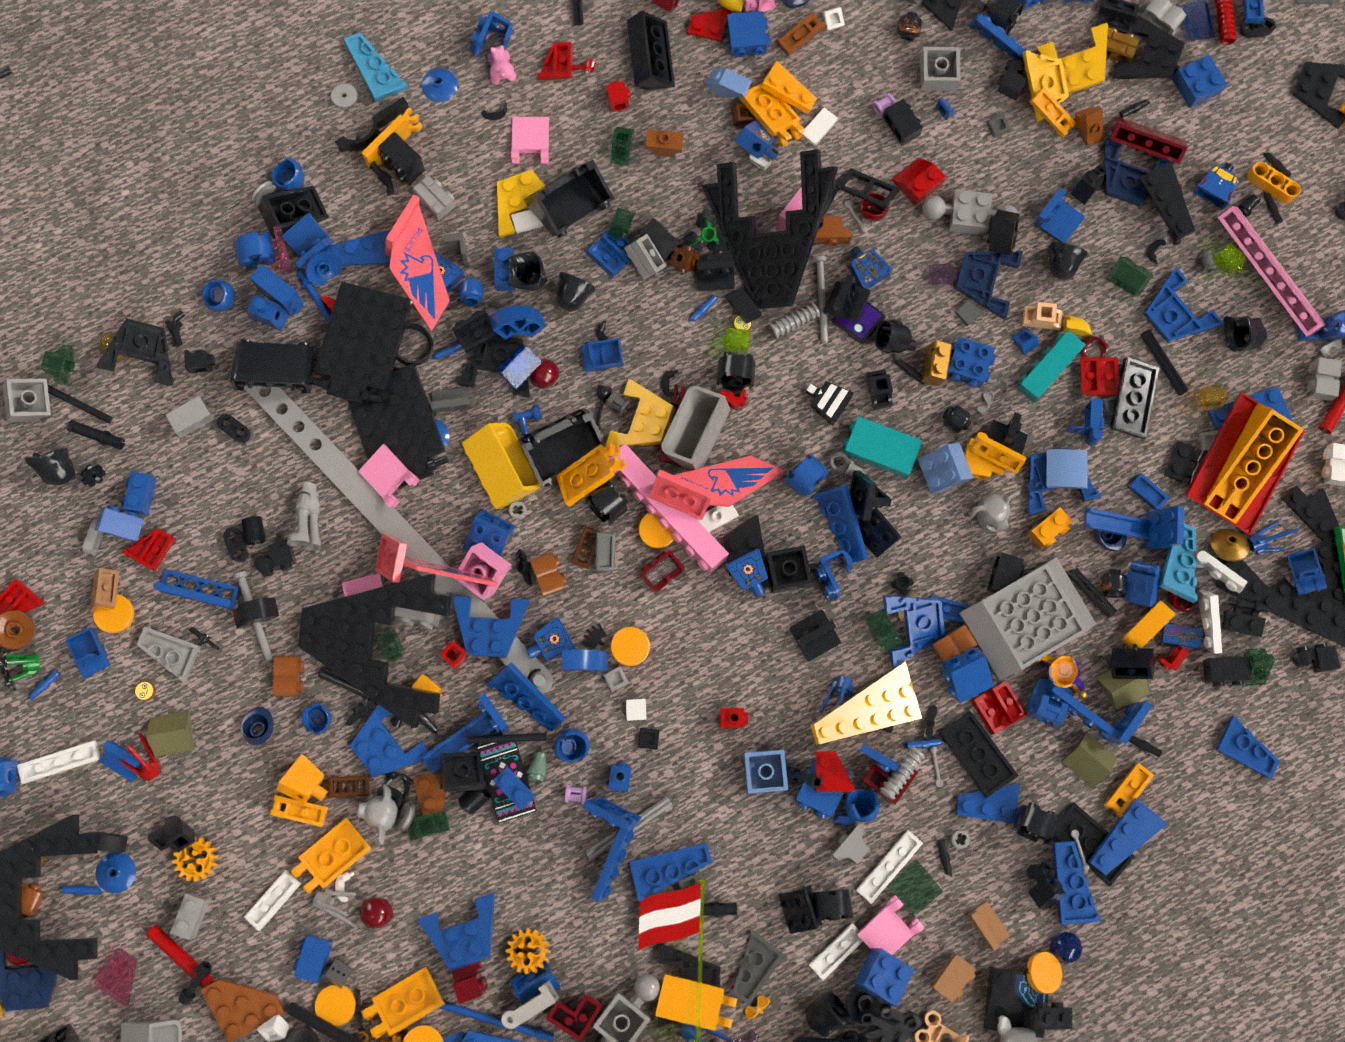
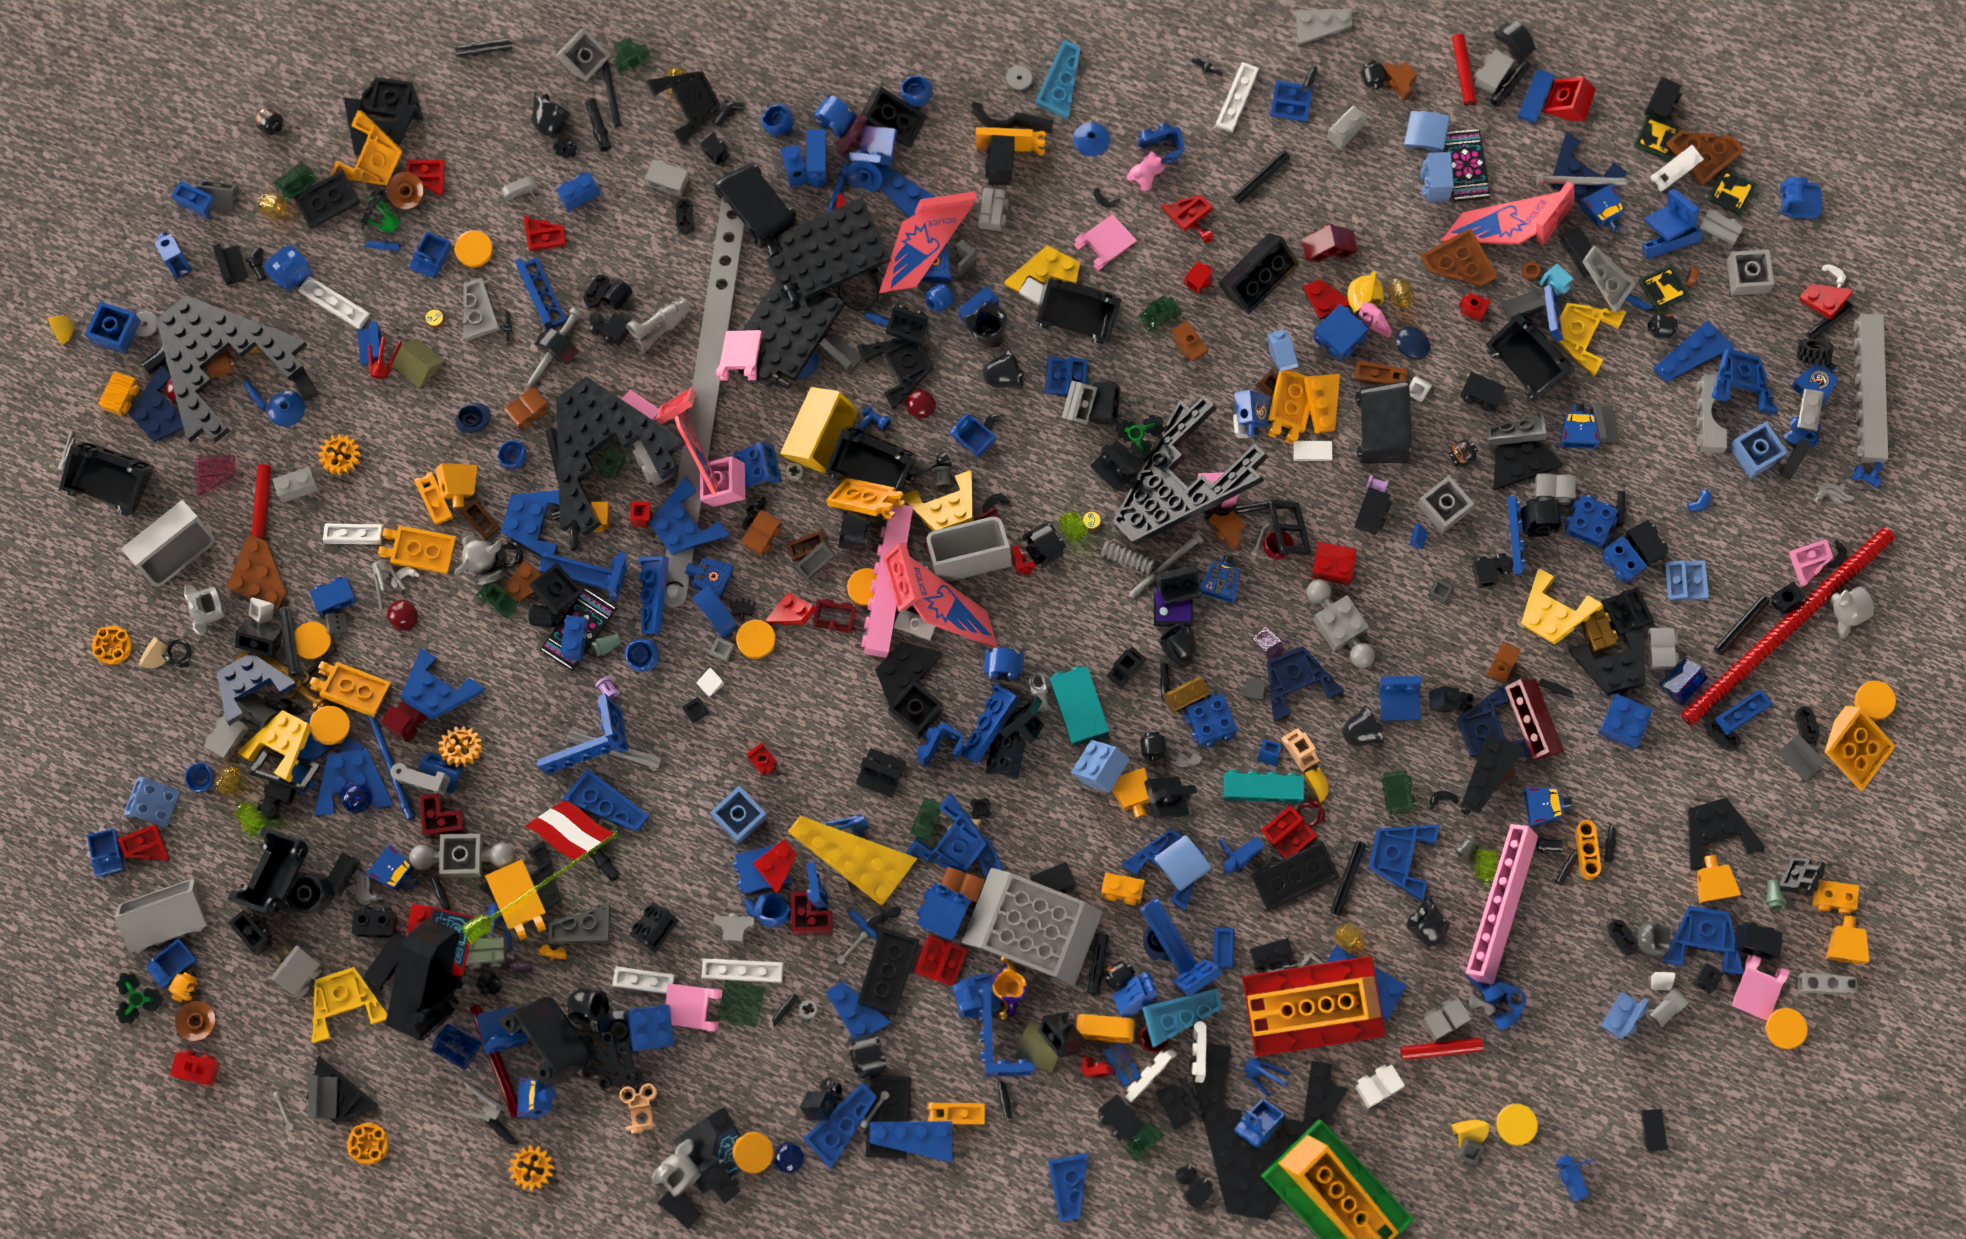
camera: 55 degrees right, 5 degrees down
(104, 589) = (486, 227): medium nougat panel -> none
(119, 524) = (542, 196): brick -> none
(174, 834) = (346, 423): black brick -> none
(188, 994) = (263, 524): black bar -> none
(264, 189) = (888, 83): light grey piece -> none
(359, 711) = (543, 481): black piece -> none
(384, 177) = (977, 160): black piece -> none
(506, 738) = (609, 603): black bar -> none
(517, 321) = (943, 349): blue brick -> none
(519, 366) = (907, 379): clear blue brick -> none
(620, 223) = (1092, 362): clear green brick -> none
(620, 777) = (646, 711): blue brick -> none
(630, 601) = (791, 611): none -> wing
(684, 259) = (1104, 433): reddish brown brick -> none
(703, 308) = (1078, 481): blue piece -> none
(743, 305) = (1106, 509): black tile -> none
(748, 571) = (887, 679): torso -> none
(811, 779) = (757, 849): black bar -> none
(829, 400) = (1083, 636): black torso -> none
(832, 905) = (674, 944): black brick -> none
(844, 57) = (1385, 423): none -> black windscreen
(902, 773) = (819, 915): light grey piece -> none
(953, 978) = (693, 1084): medium nougat brick -> none
(989, 925) = (757, 1083): medium nougat panel -> none
(994, 511) = (1098, 832): light grey piece -> none
(997, 453) = (1145, 795): light orange plate -> none
(1003, 232) = (1343, 660): black brick -> none
(1047, 74) = (1509, 598): yellow wing -> none
(1052, 112) = (1487, 622): light orange plate -> none
(1090, 760) = (957, 1064): olive slope -> none
(1229, 545) = (1227, 1050): pearl gold dish -> none

